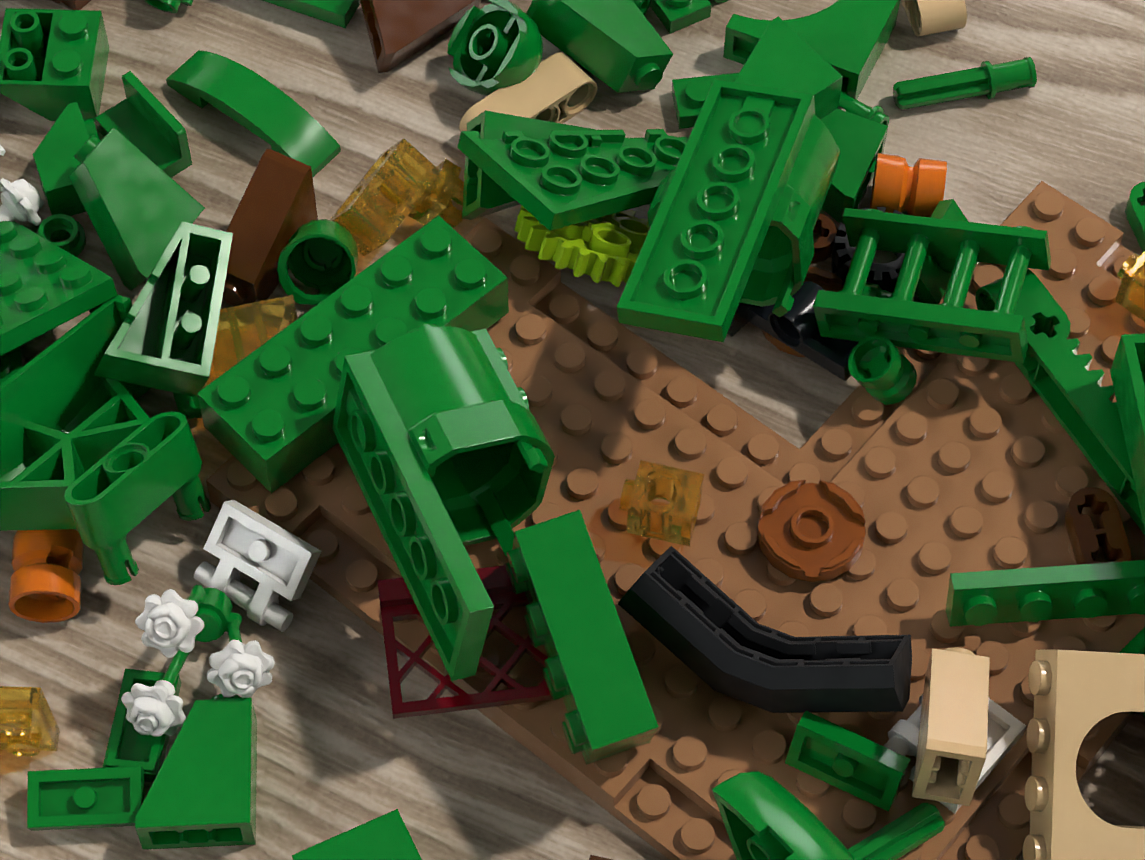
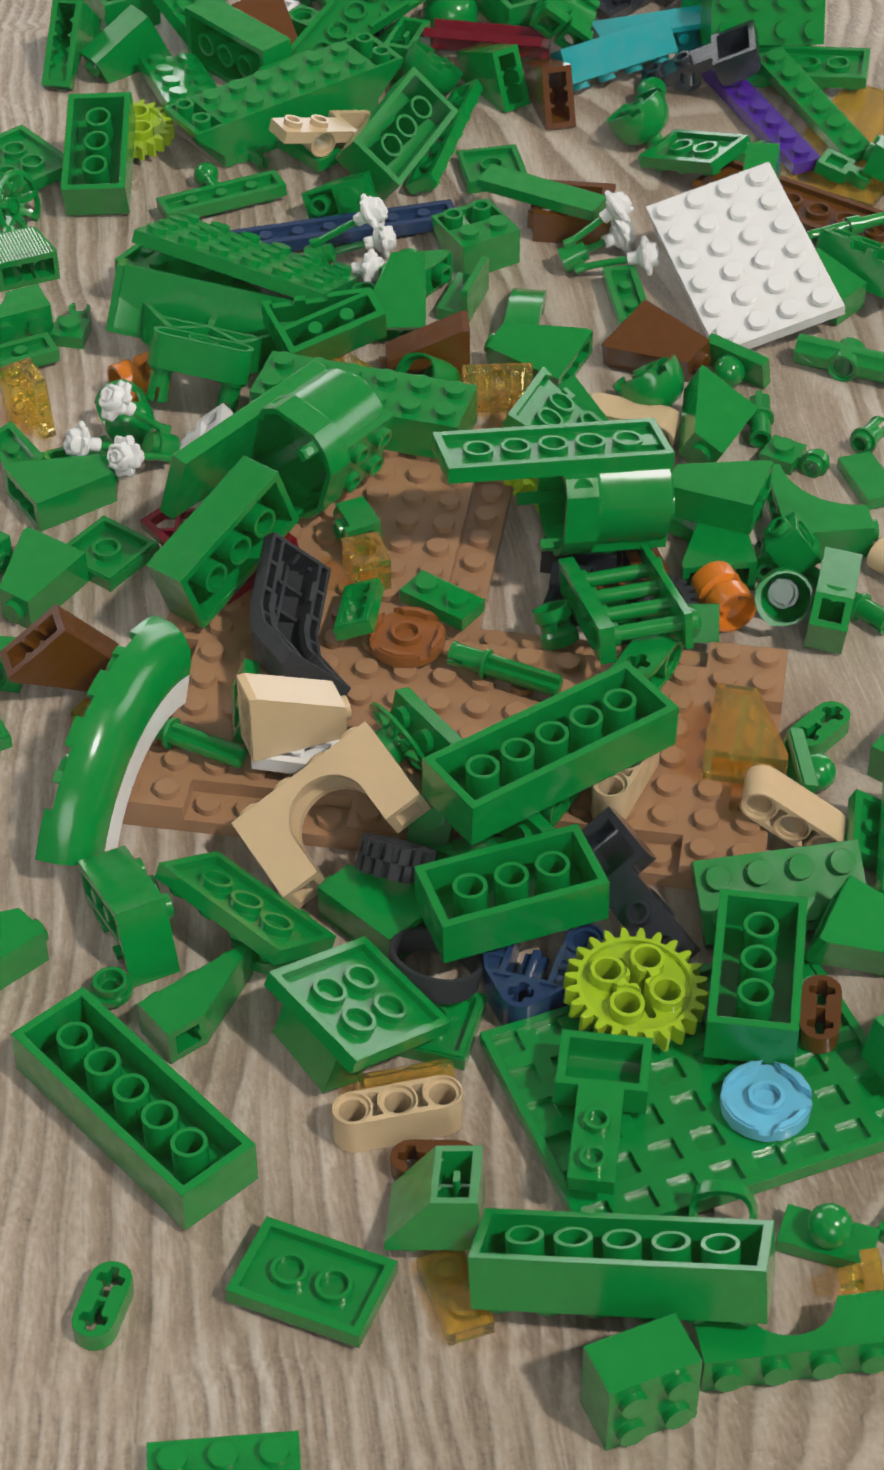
camera: 60 degrees right, 15 degrees down
(118, 635) = (128, 425): none -> green helmet
(353, 122) = (555, 347): none -> green slope
(366, 777) = (113, 551): none -> green tile
(588, 478) = (354, 518): none -> green brick
(744, 554) = (358, 609): none -> green plate
(768, 459) = (447, 601): none -> green plate
(883, 80) = (792, 543): none -> green brick
(923, 471) = (503, 669): none -> green axle
(955, 133) = (783, 597): none -> green helmet
(996, 95) = (833, 600): none -> green slope
(1018, 646) = (389, 736): none -> green wheel

